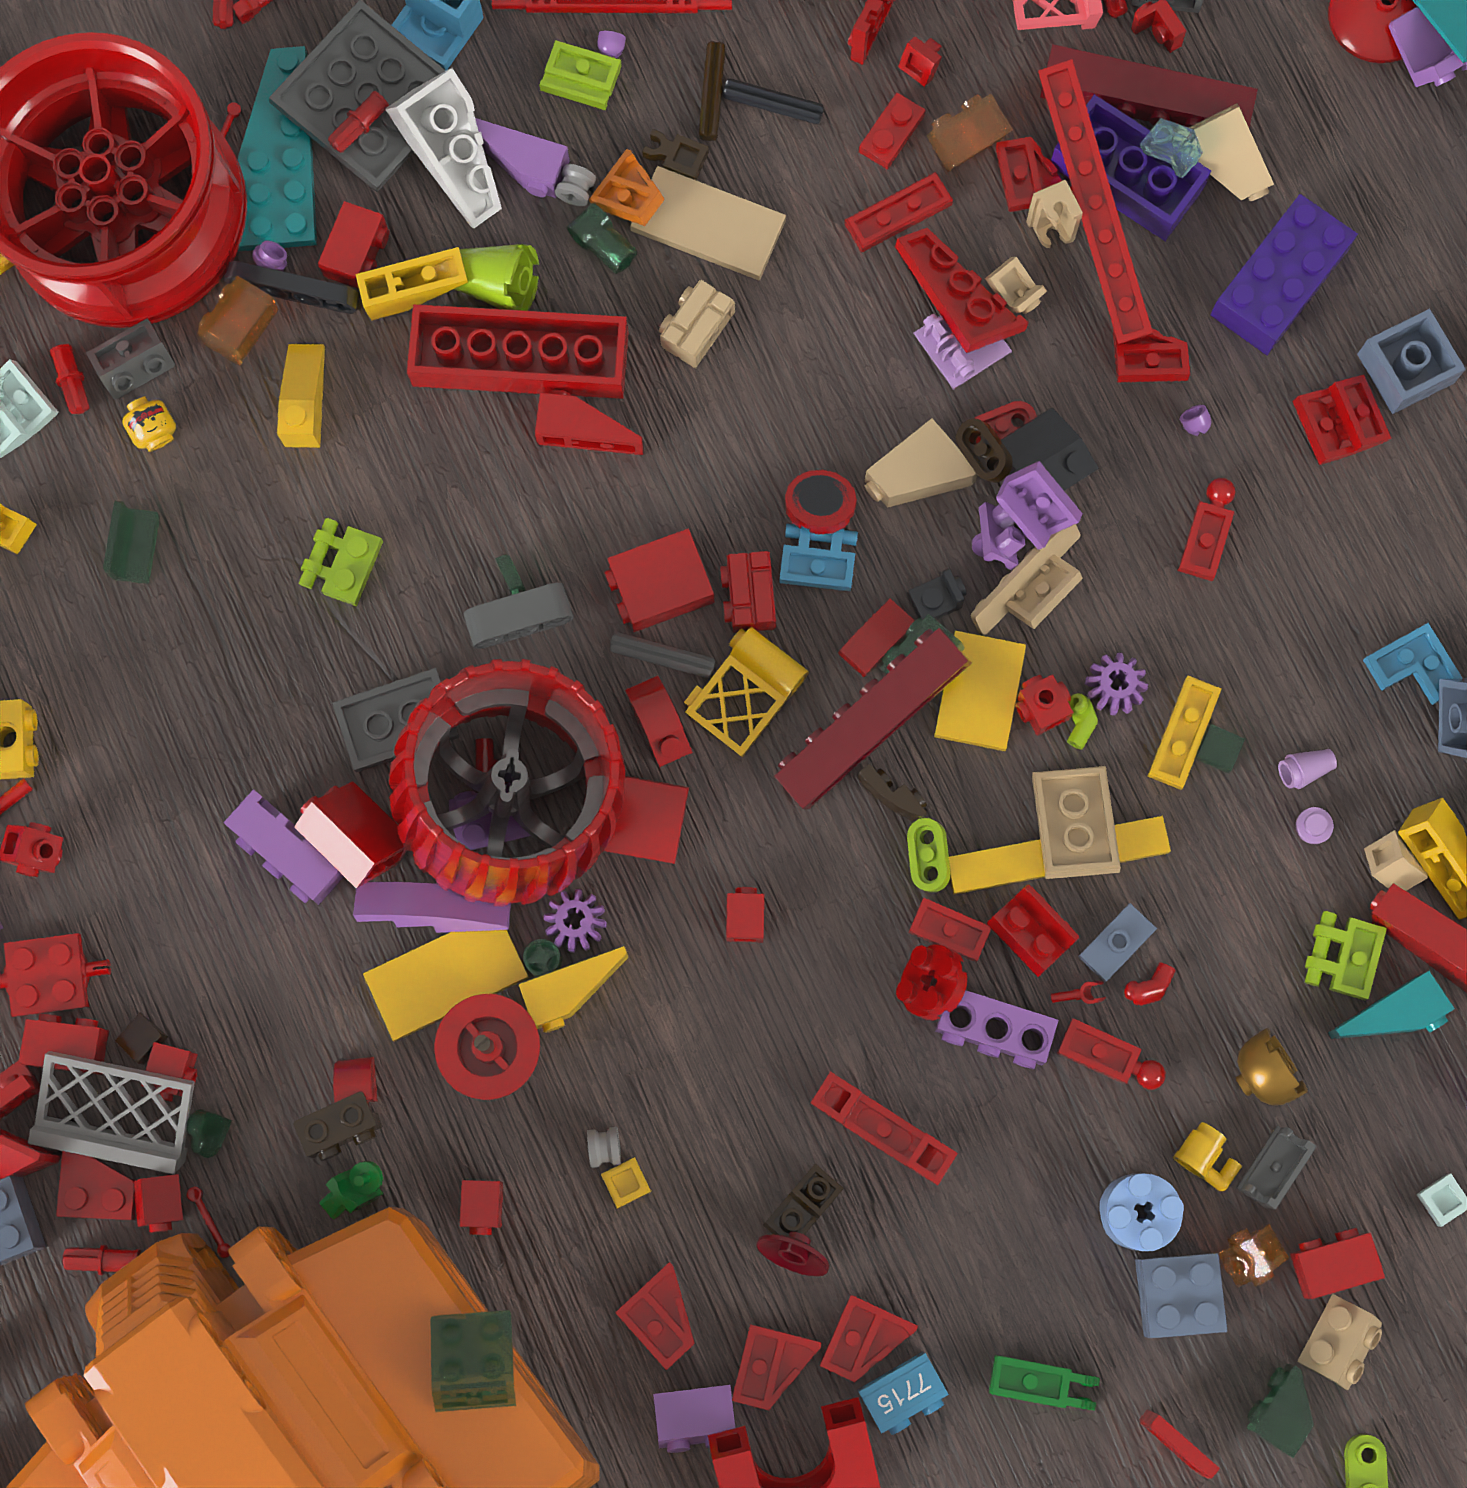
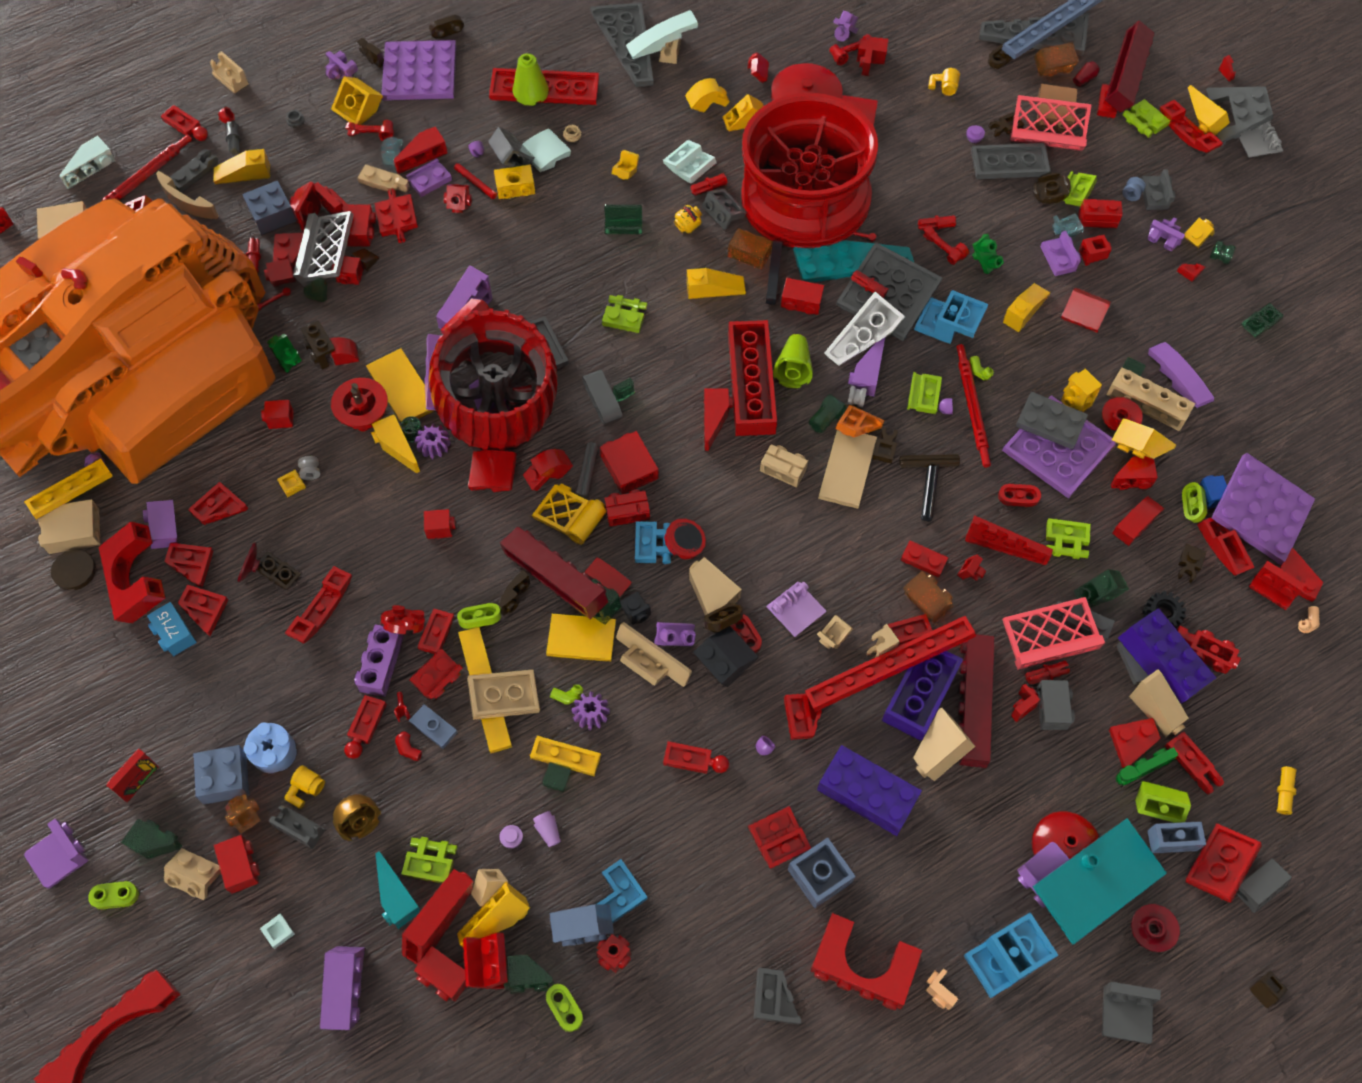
camera: 80 degrees right, 15 degrees down
(270, 256) = (789, 260): medium lavender plate -> none
(410, 282) = (781, 319): yellow slope -> none
(472, 1361) = (177, 384): clear green bracket -> none
(898, 212) = (873, 567): red tile -> none
(957, 294) = (821, 602): red wing -> none
(1037, 504) = (689, 644): medium lavender bracket -> none
(1038, 1383) = (174, 703): green hinge -> none
(1040, 715) = (573, 668): red brick -> none
(1174, 145) = (934, 705): clear light blue bracket -> none

